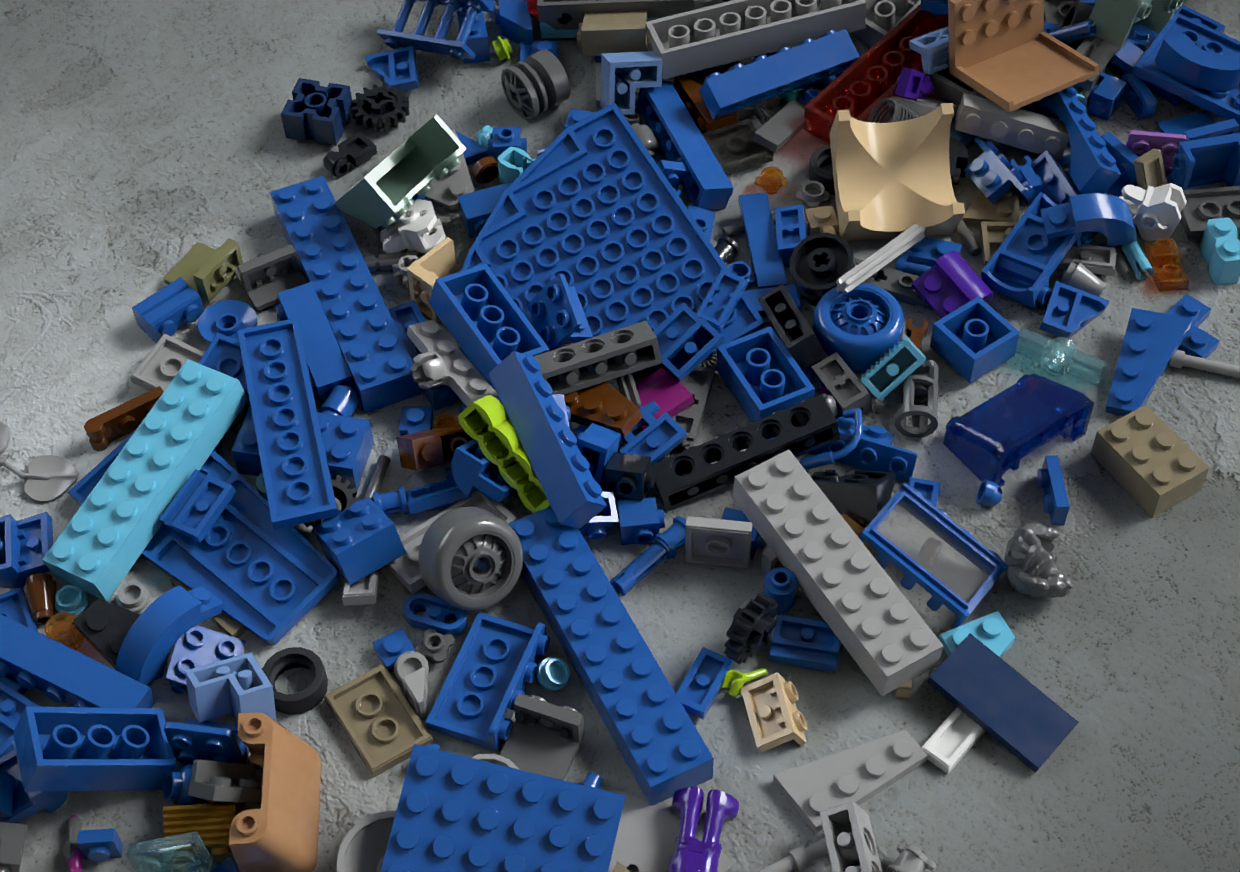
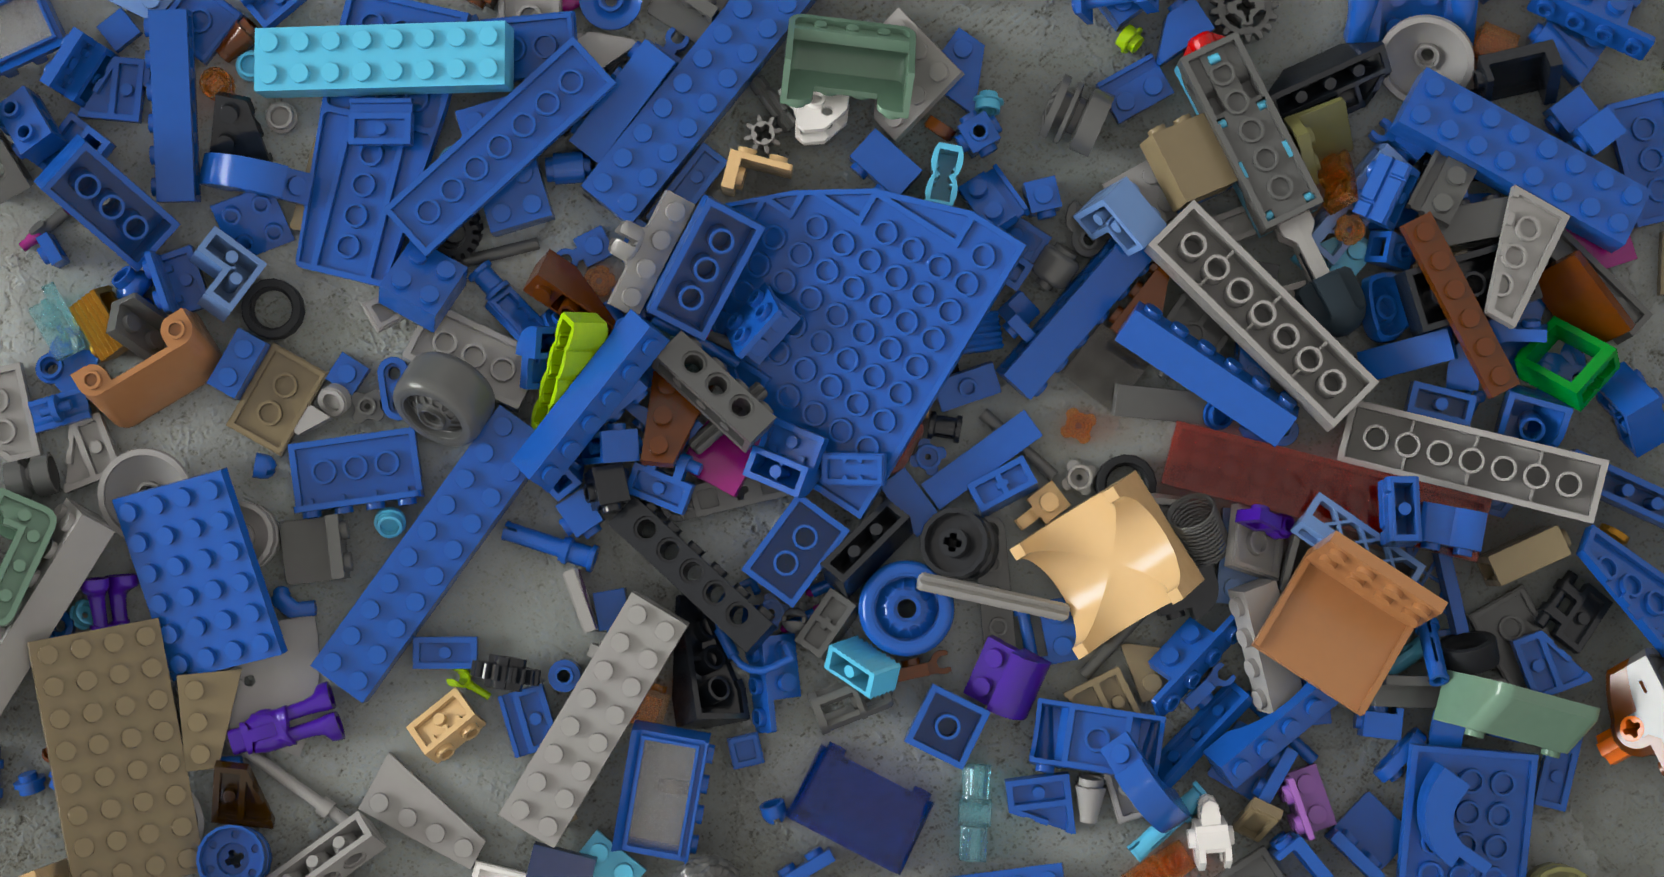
camera: 55 degrees right, 35 degrees up
(324, 727) = (238, 363): none -> blue brick

